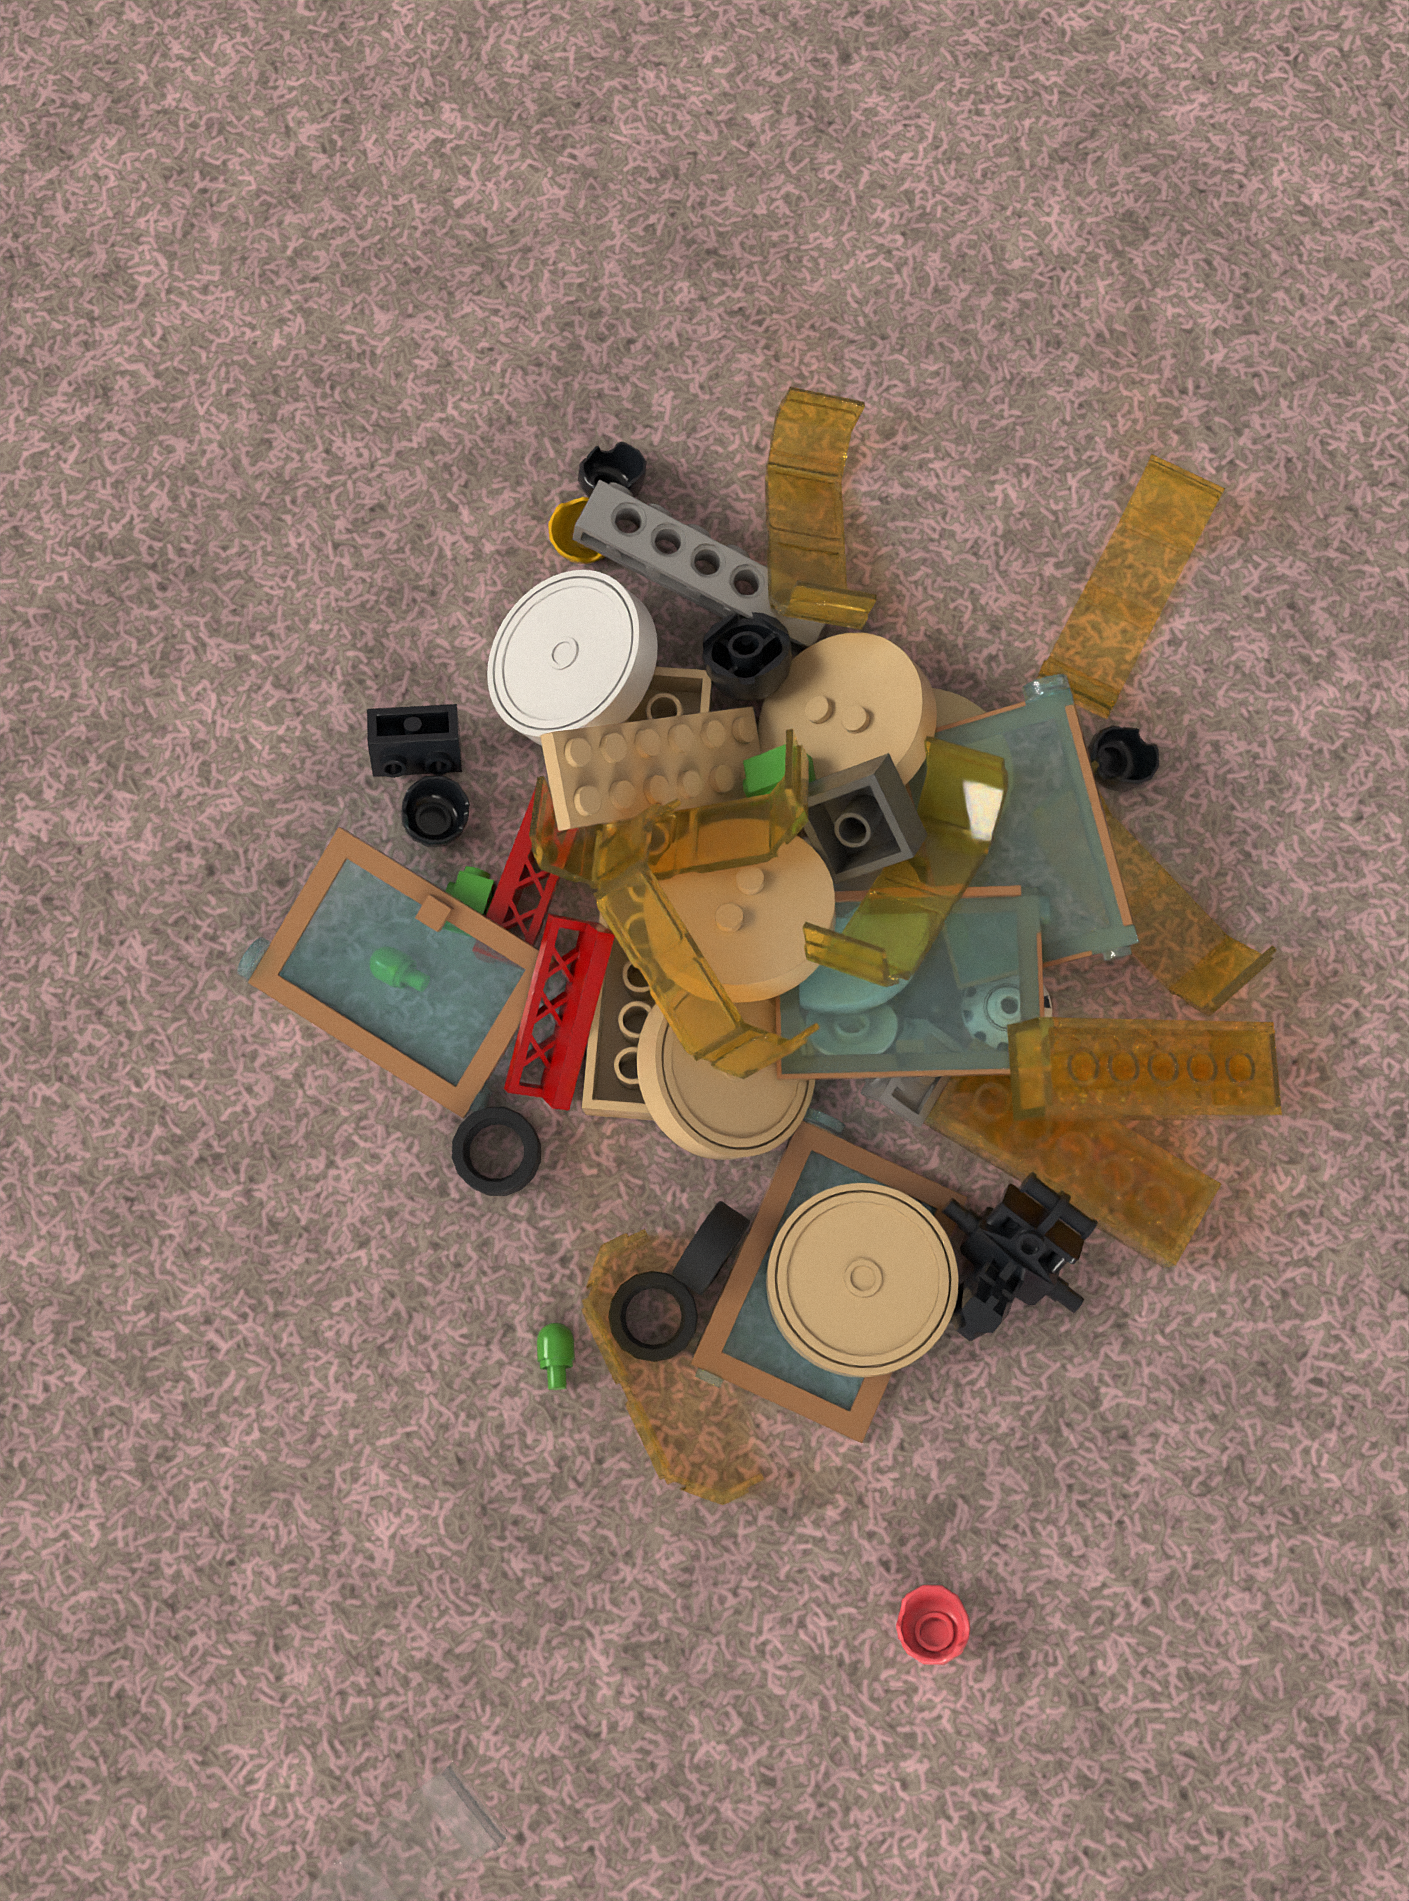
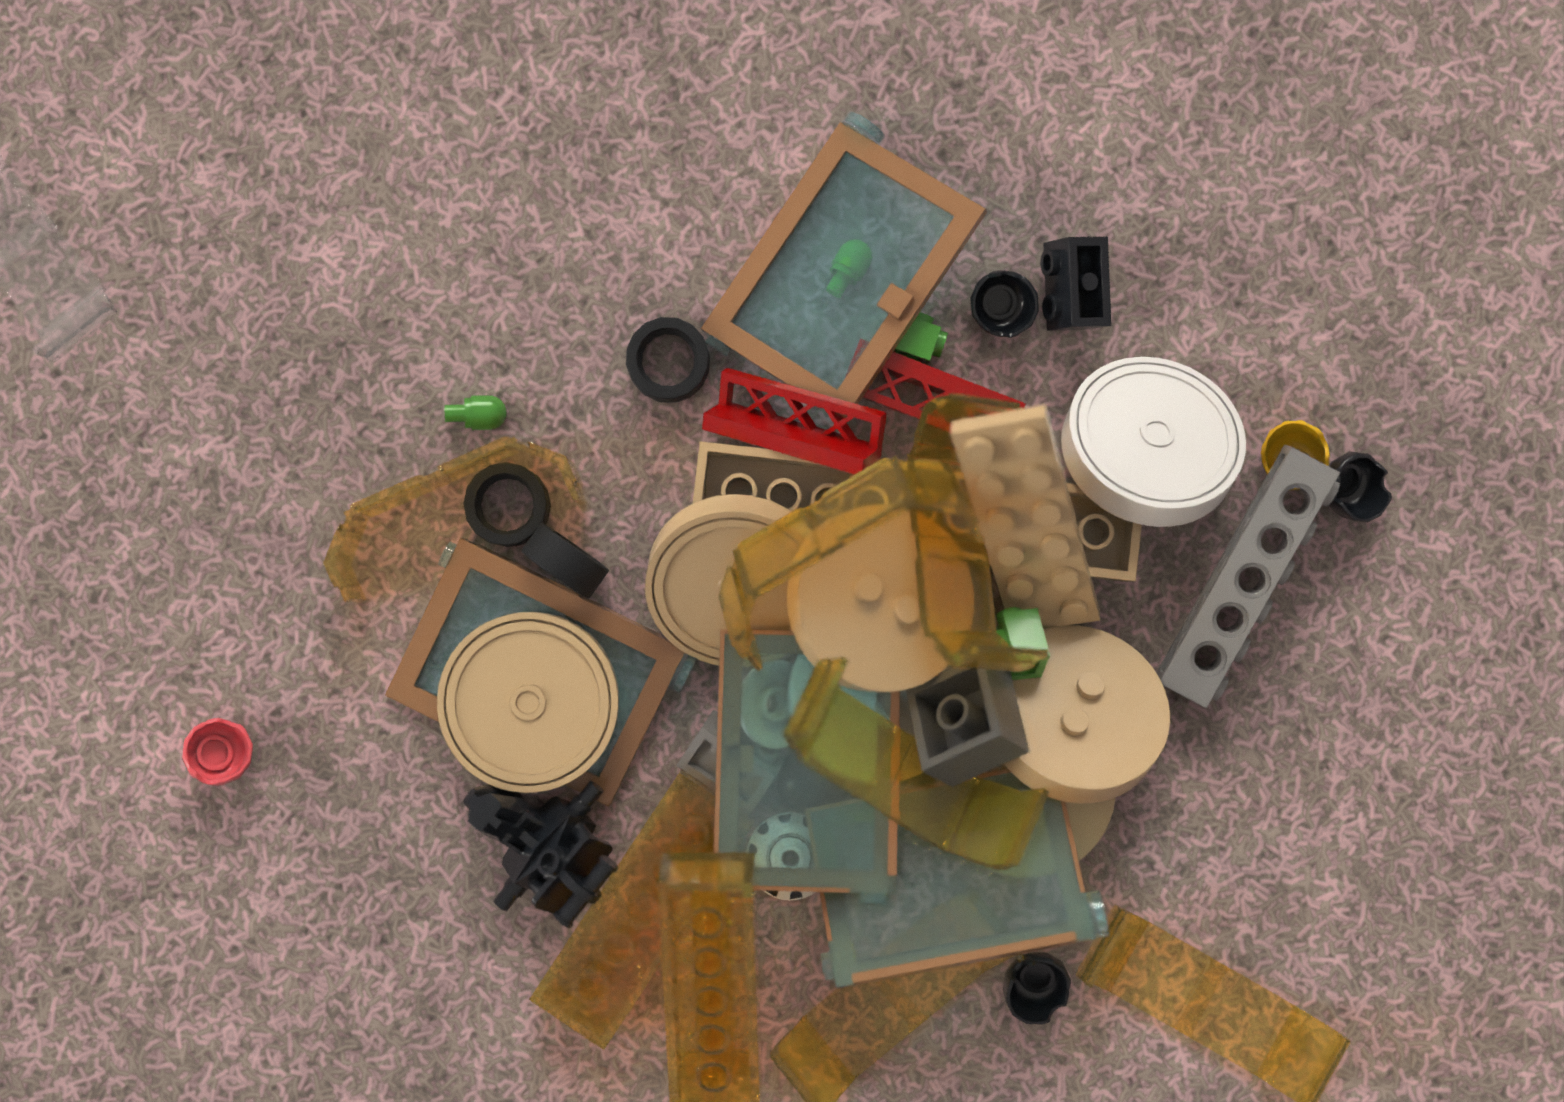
camera: 85 degrees right, 10 degrees up
(747, 656) = (1150, 617): black cylinder -> none
(807, 510) = (1301, 685): clear yellow windscreen -> none

